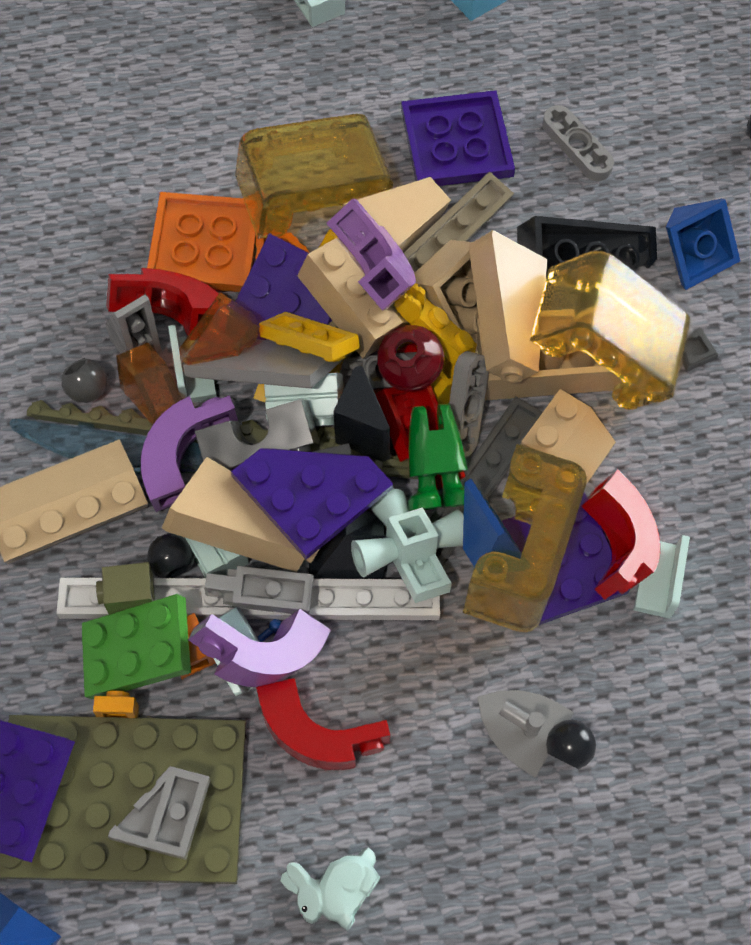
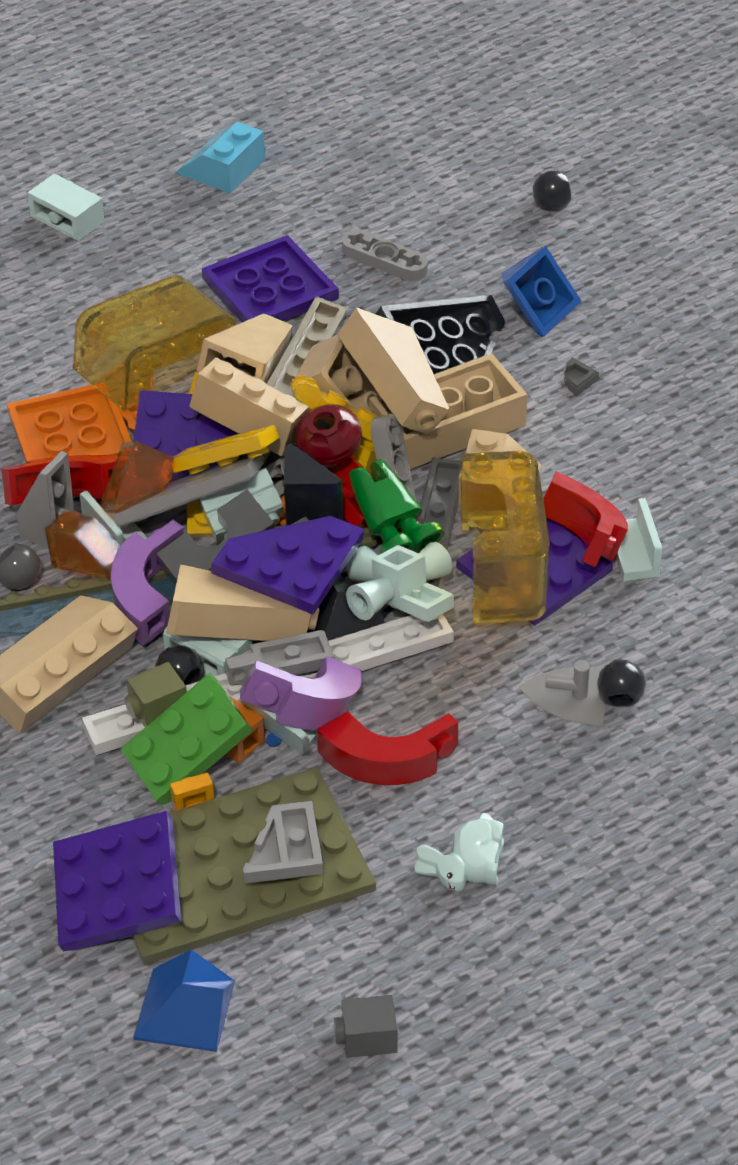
camera: 20 degrees left, 20 degrees down
(382, 260) = (273, 365): medium lavender arch -> none
(483, 528) = (457, 533): blue slope -> none
(618, 321) = (487, 340): clear yellow windscreen -> none

